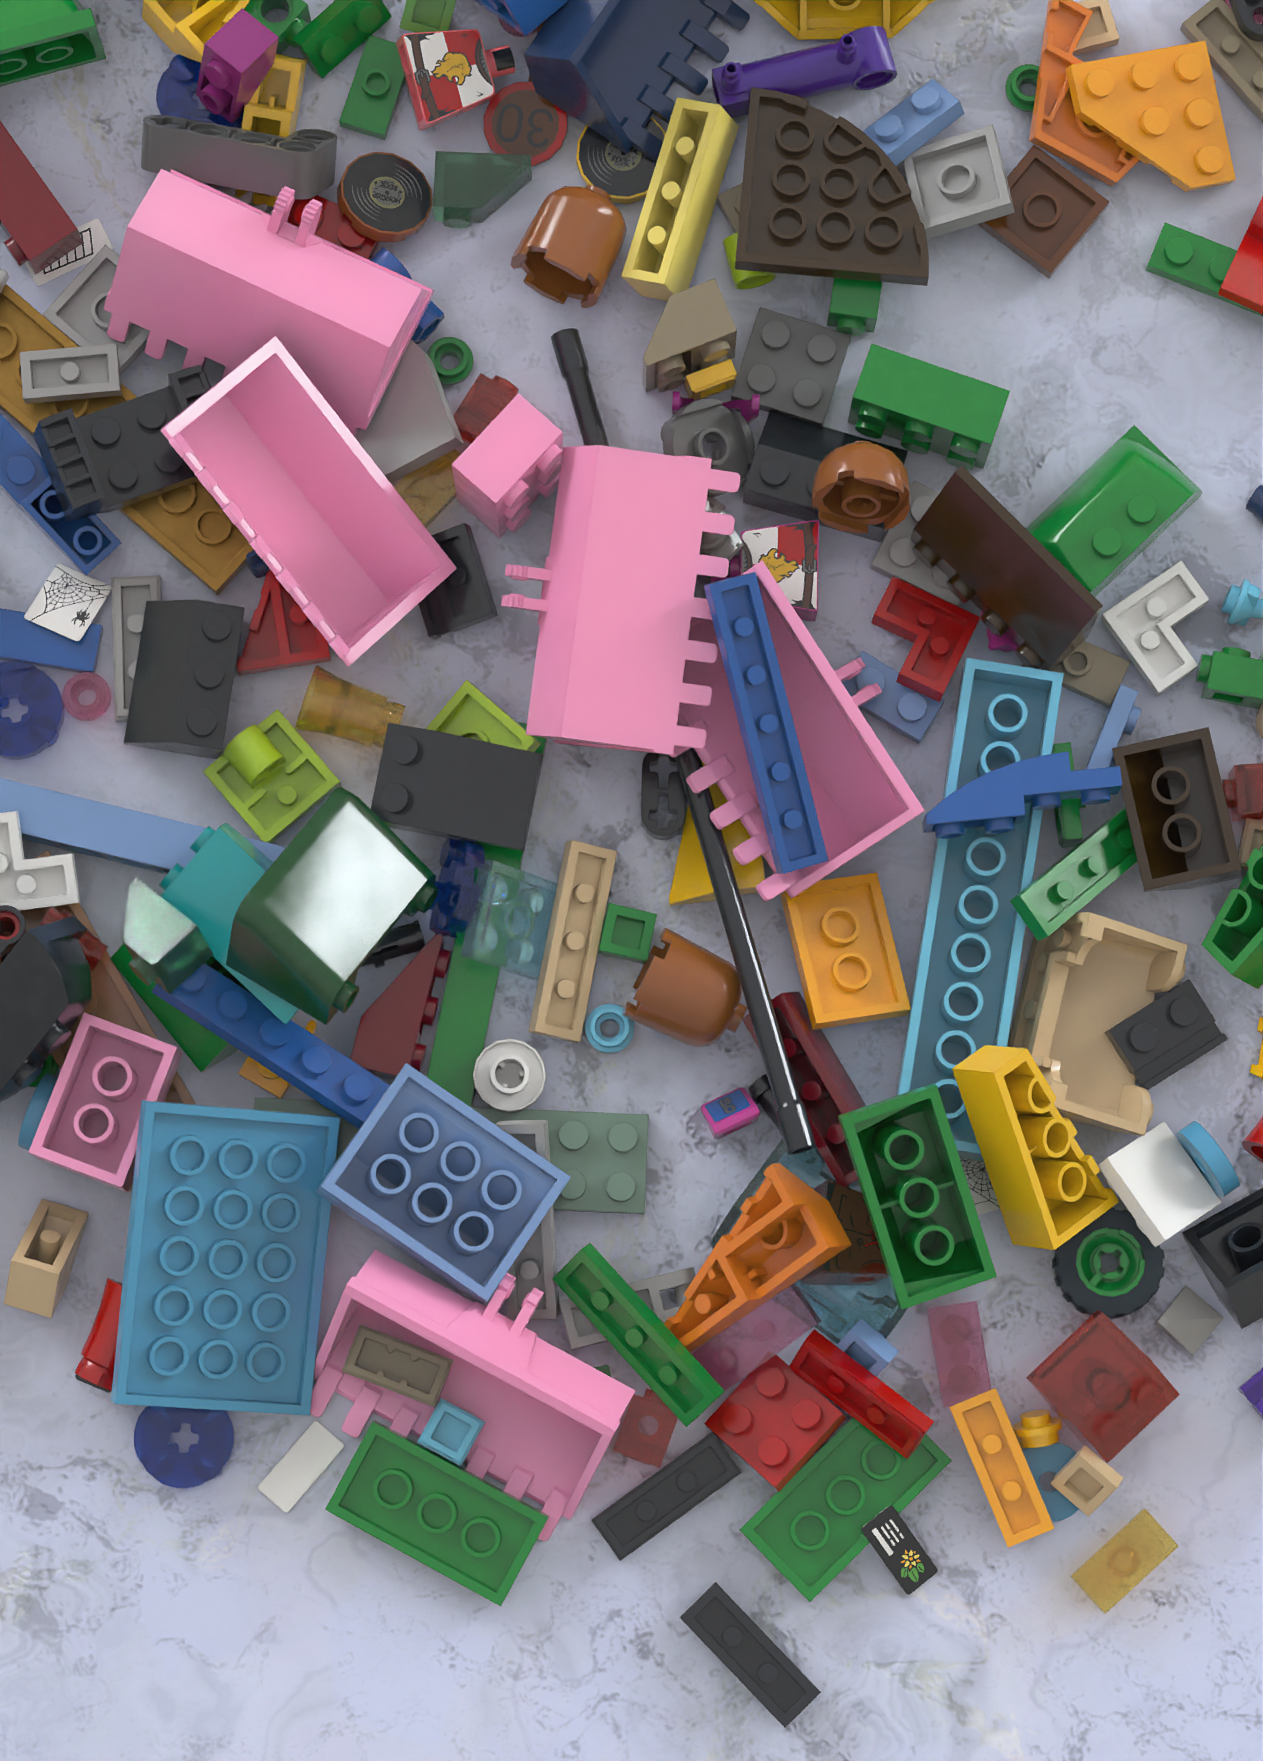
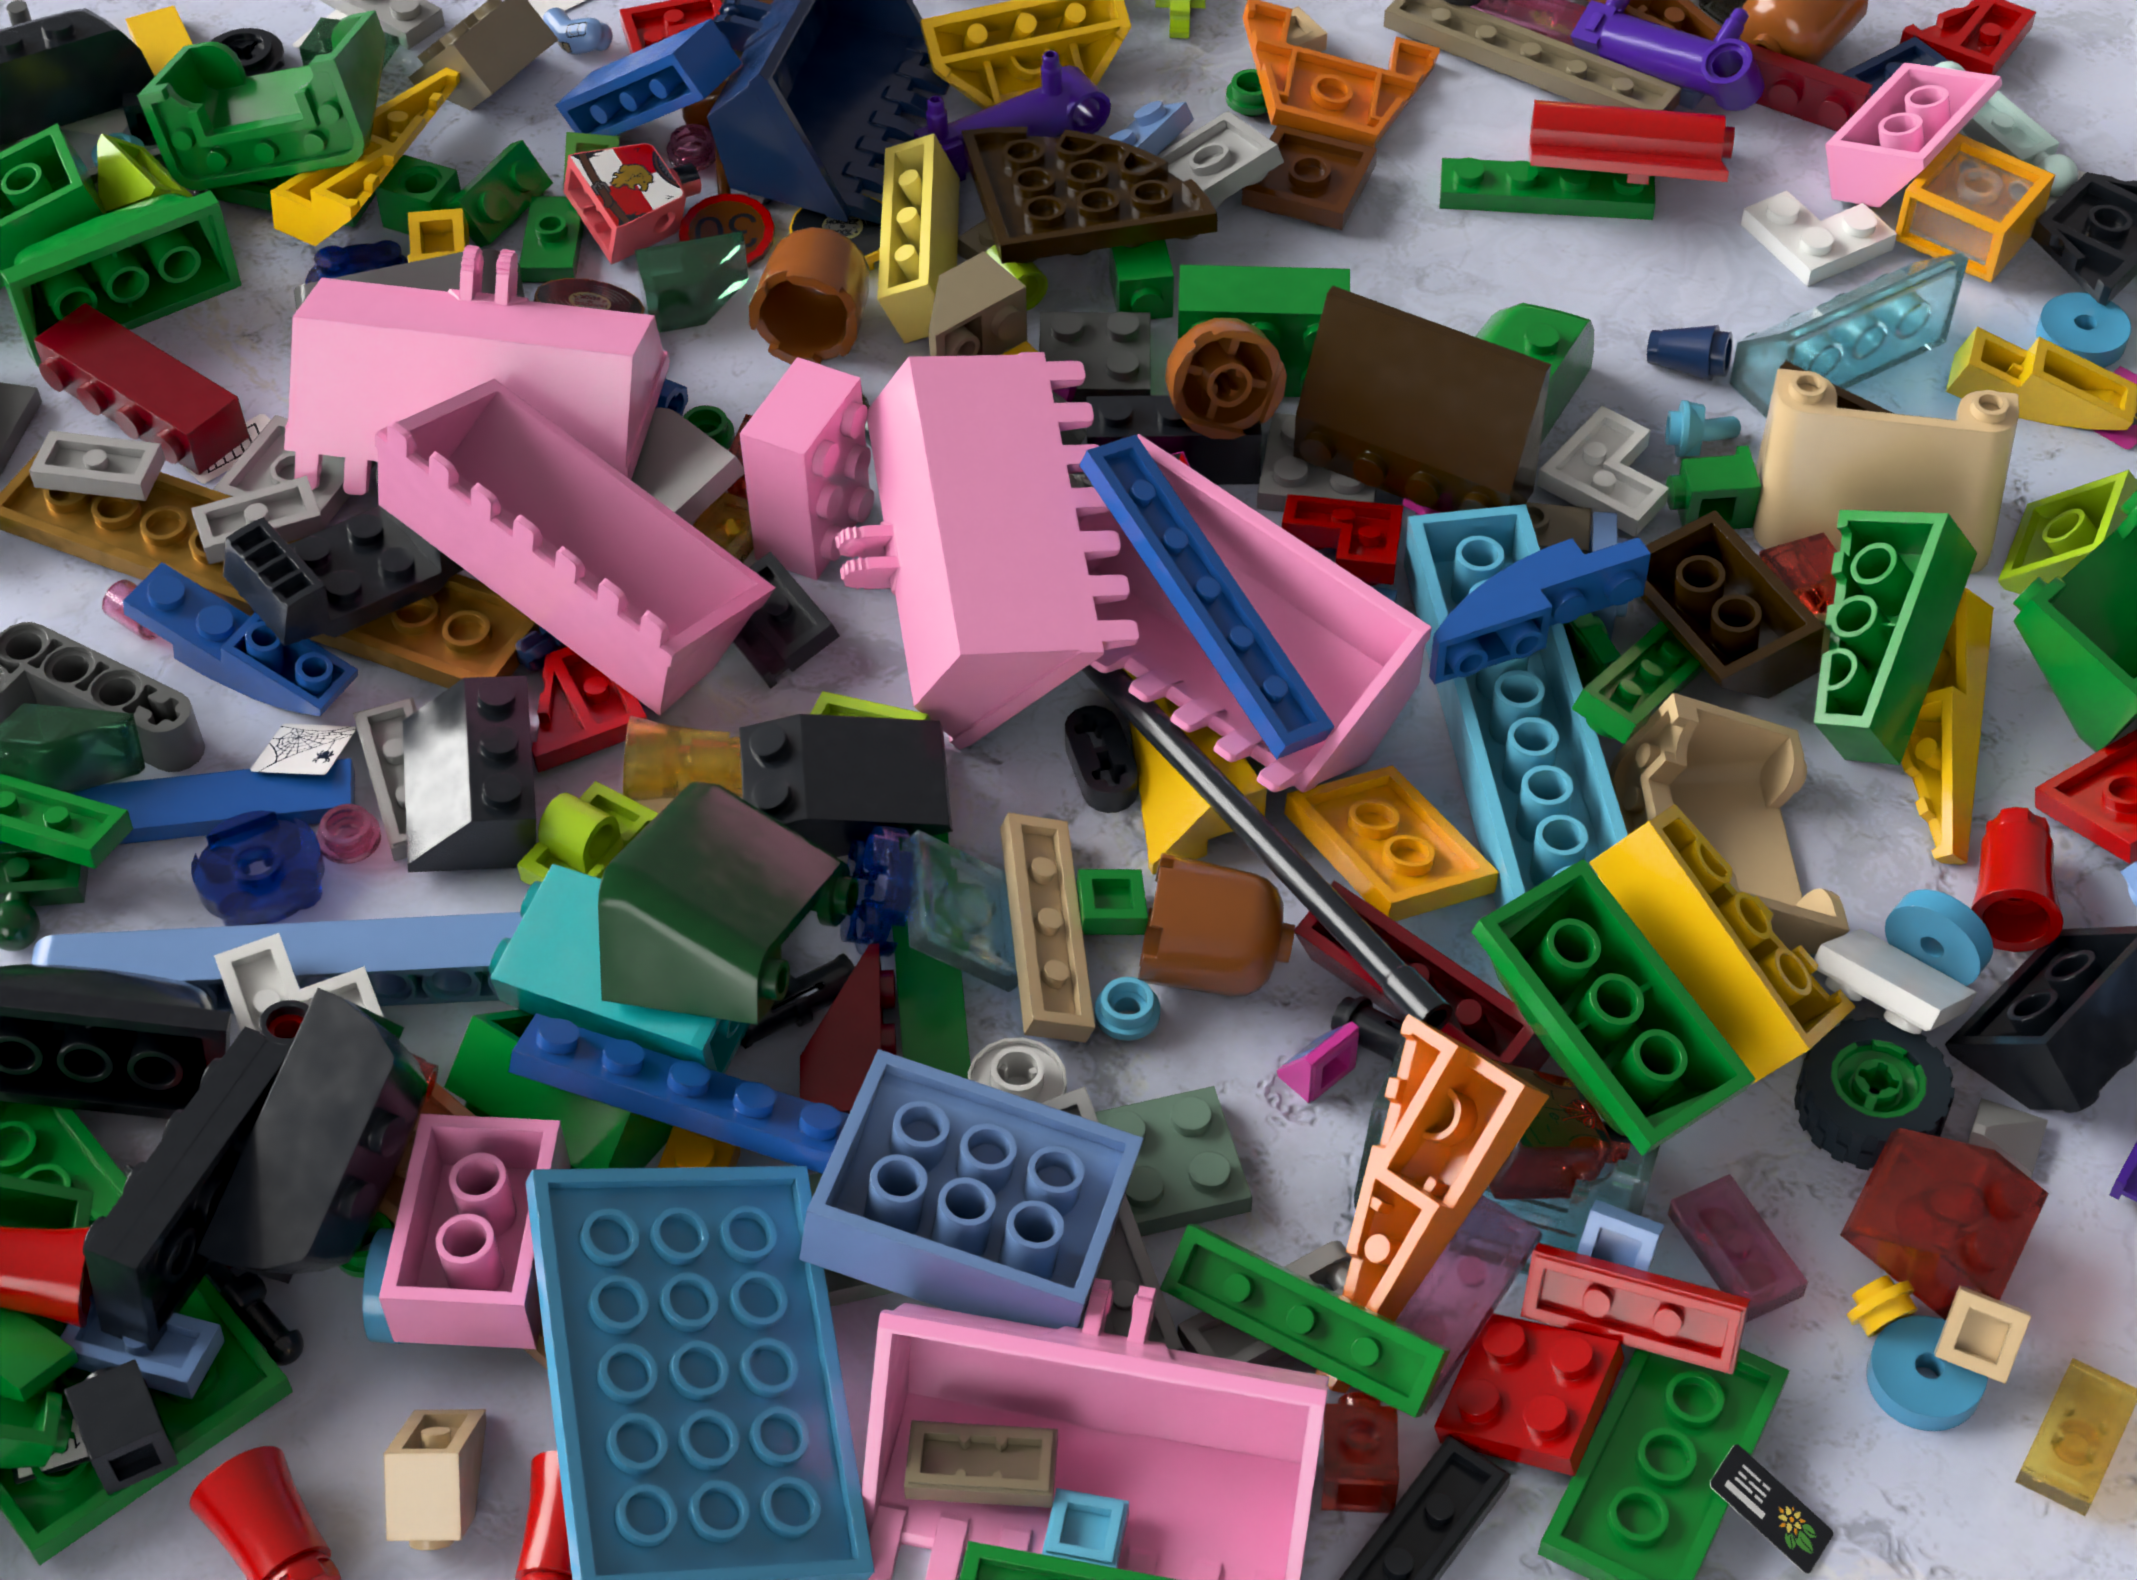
camera: 15 degrees left, 30 degrees down
(161, 939) = (511, 990): clear green slope -> none
(235, 65) = (386, 209): magenta slope -> none
(1002, 1467) = (1863, 1353): light orange plate -> none
(1159, 110) = (1396, 68): light orange plate -> none
(1166, 1035) = (1815, 839): black plate -> none

